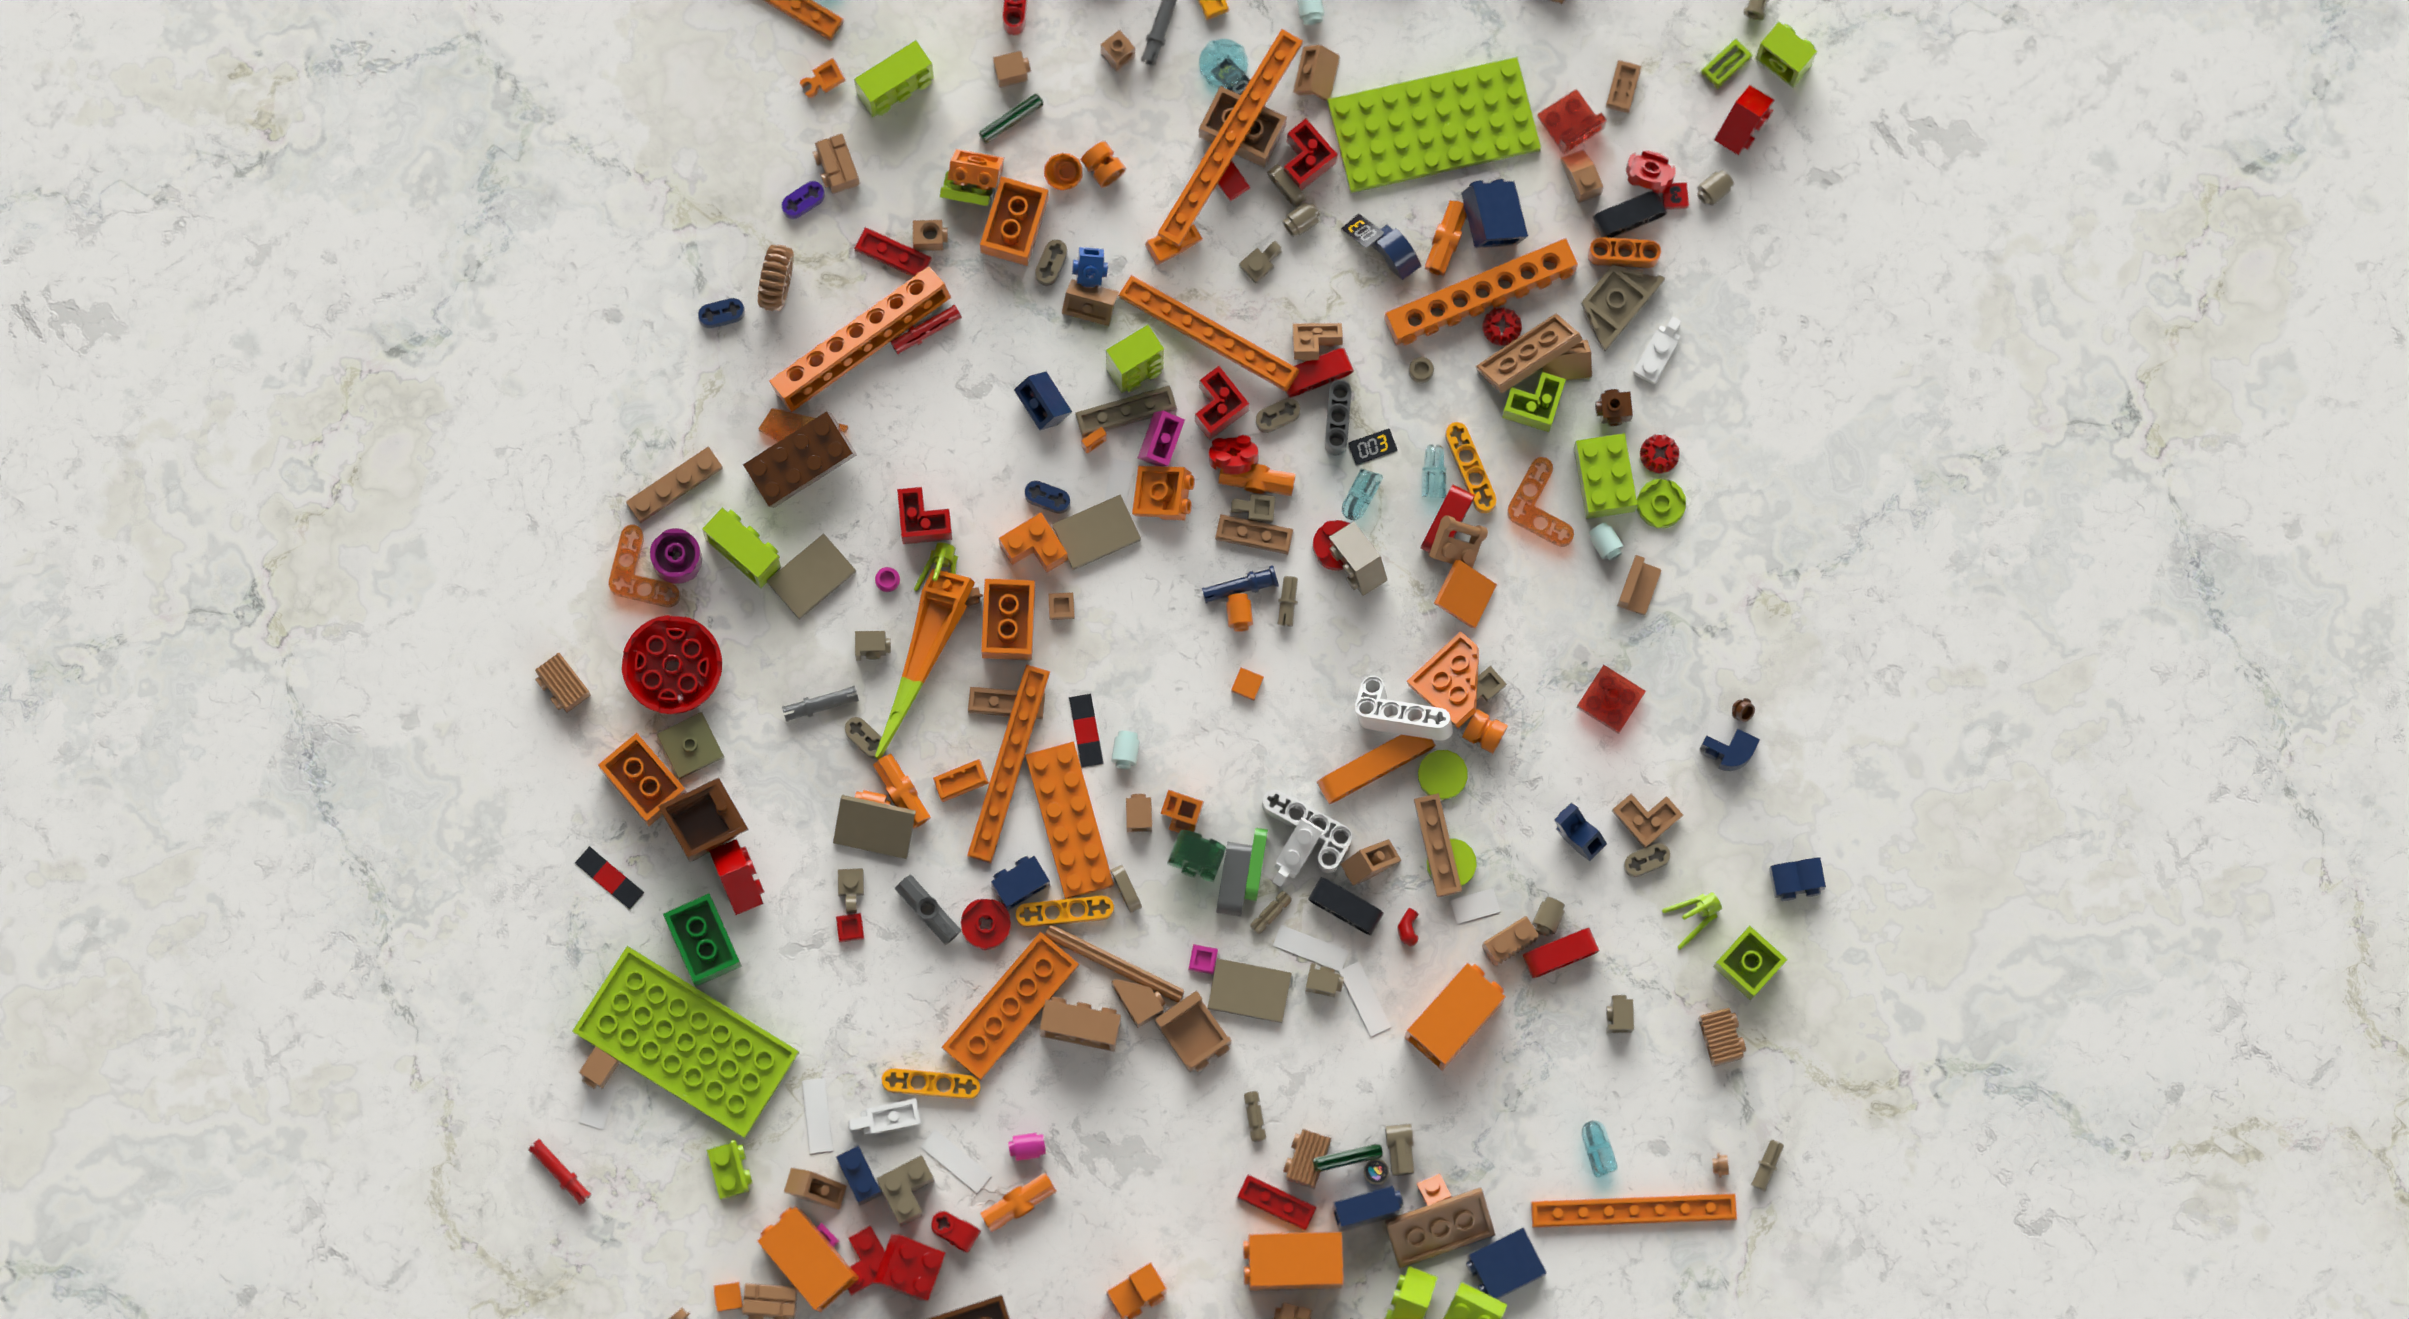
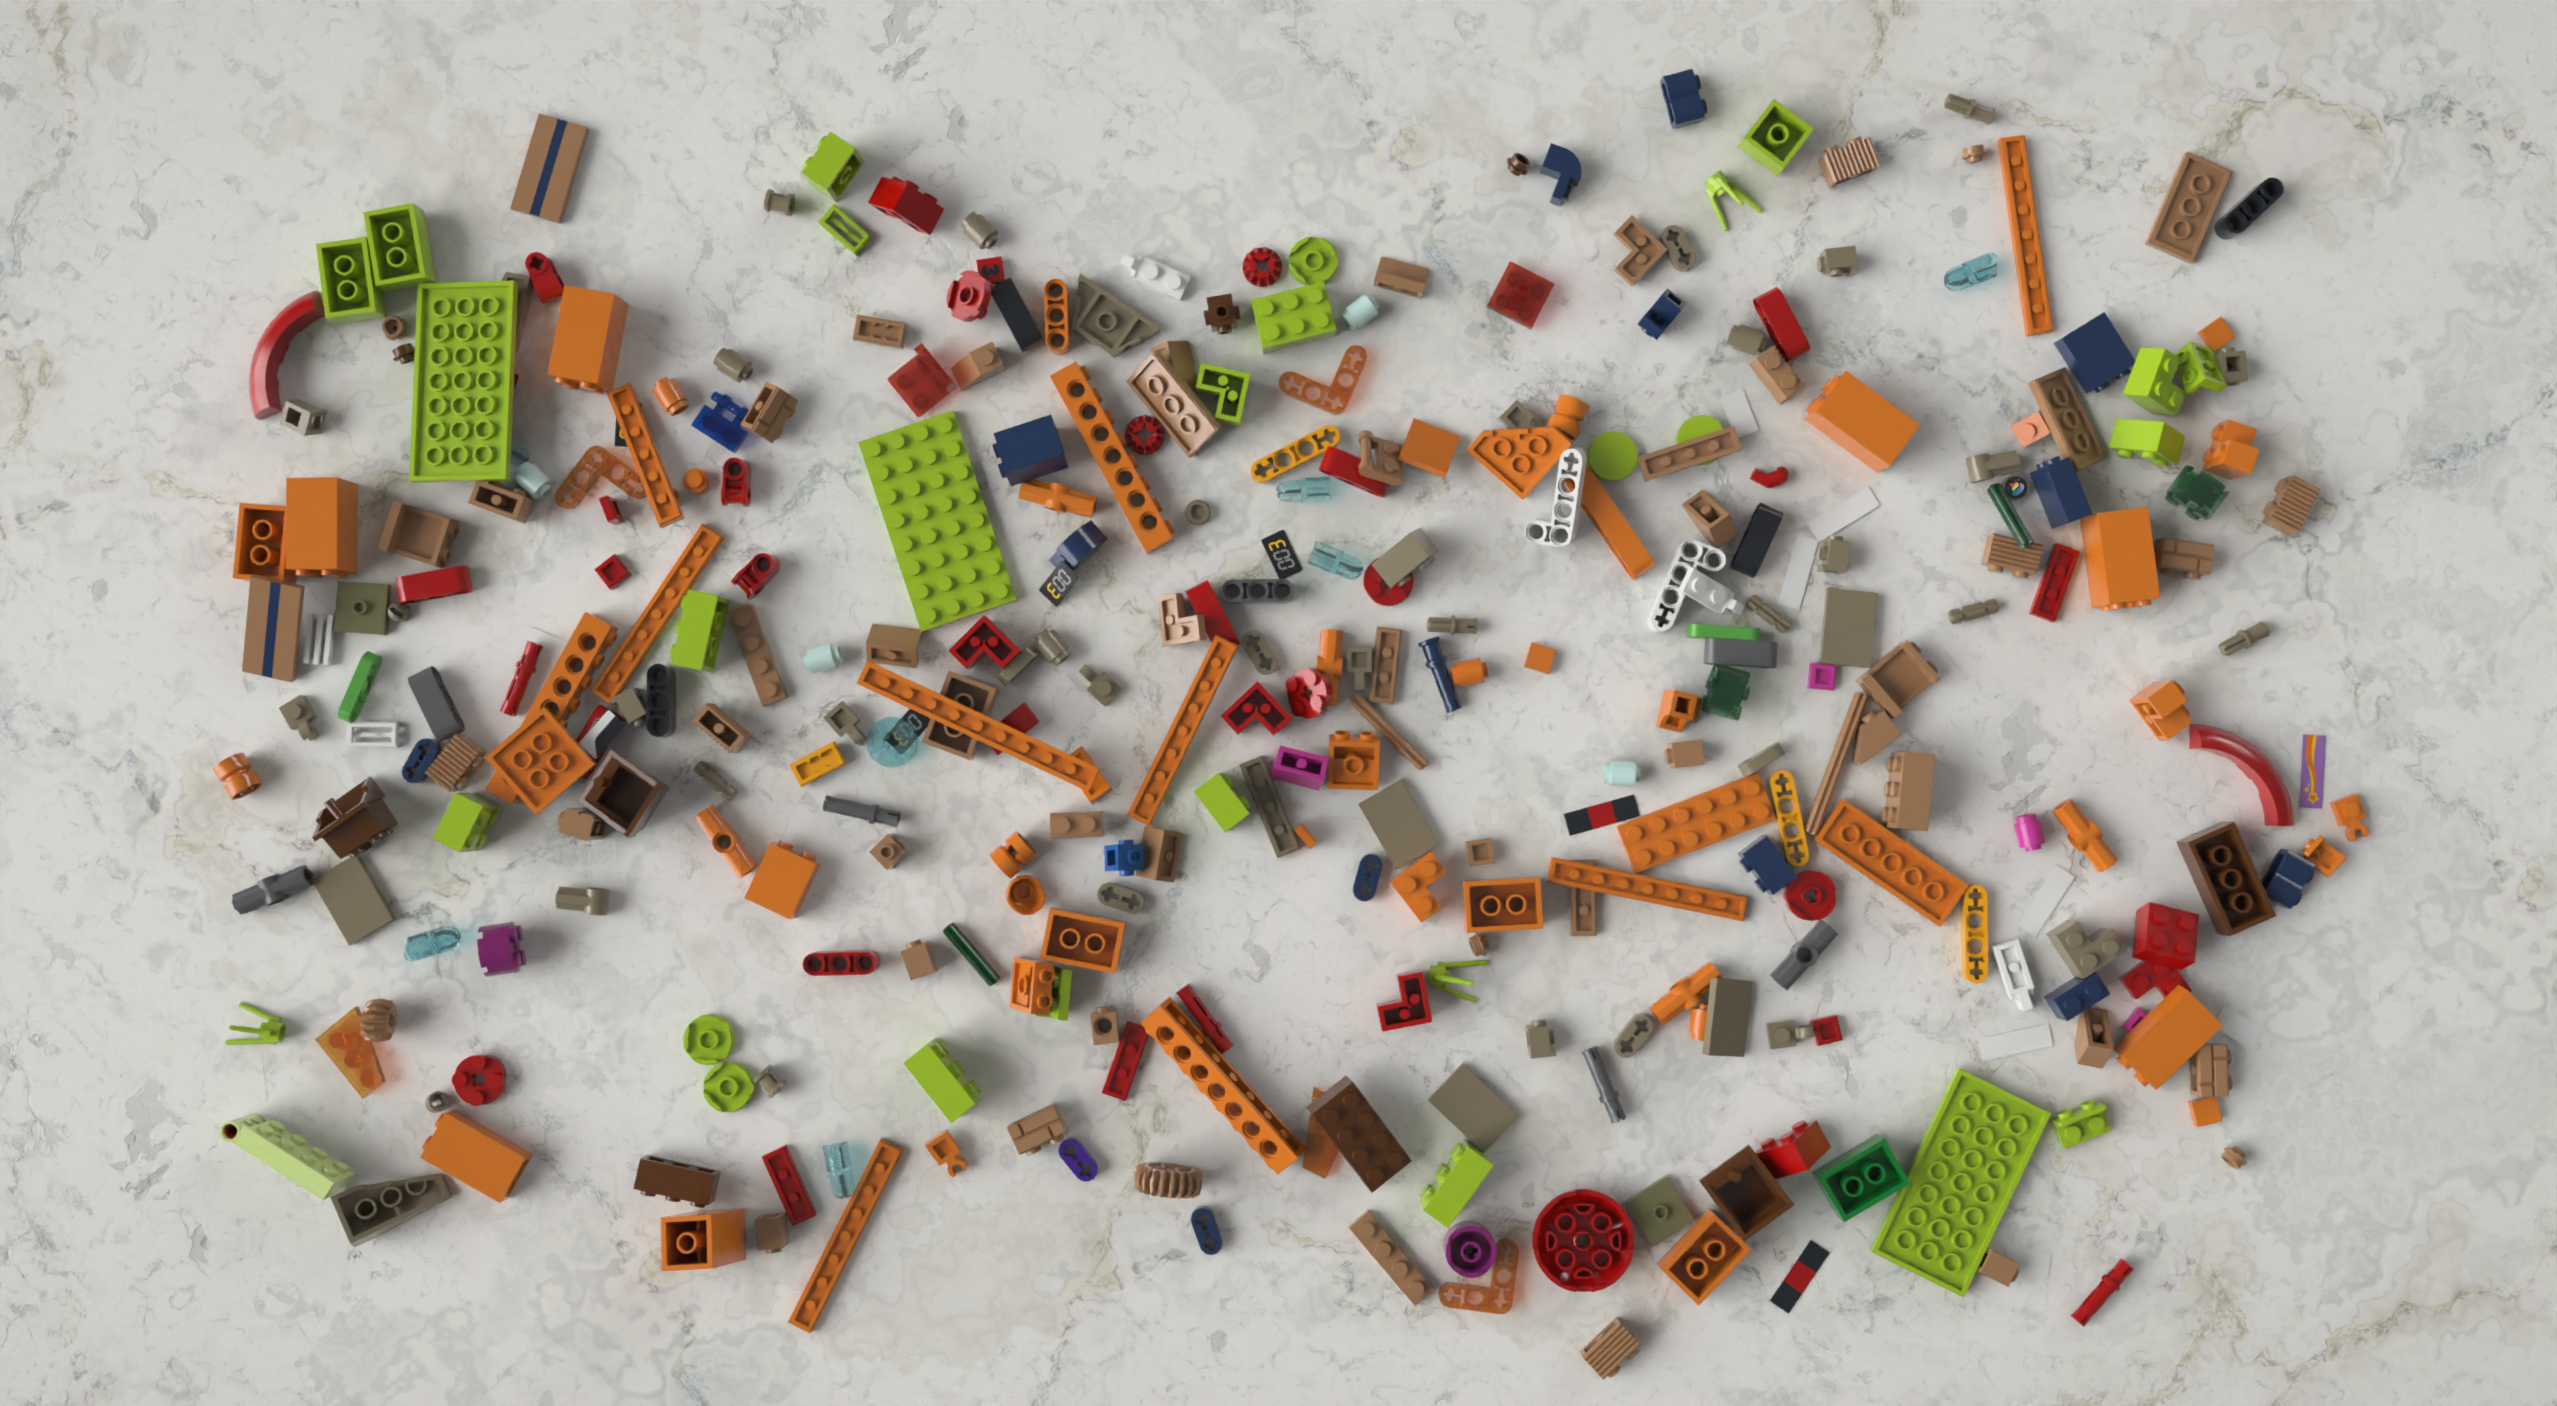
camera: 90 degrees left, 10 degrees up
(887, 579) = (1469, 1030): dark pink plate -> none
(938, 614) = (1511, 977): orange plate -> none
(959, 1234) = (2121, 892): red piece -> none
(960, 780) = (1668, 935): orange plate -> none
(1043, 400) = (1270, 890): dark blue brick -> none
(1126, 225) = (1076, 824): none -> medium nougat brick
(1188, 531) = (1389, 731): none -> medium nougat axle
(1247, 20) = (843, 721): none -> dark tan plate

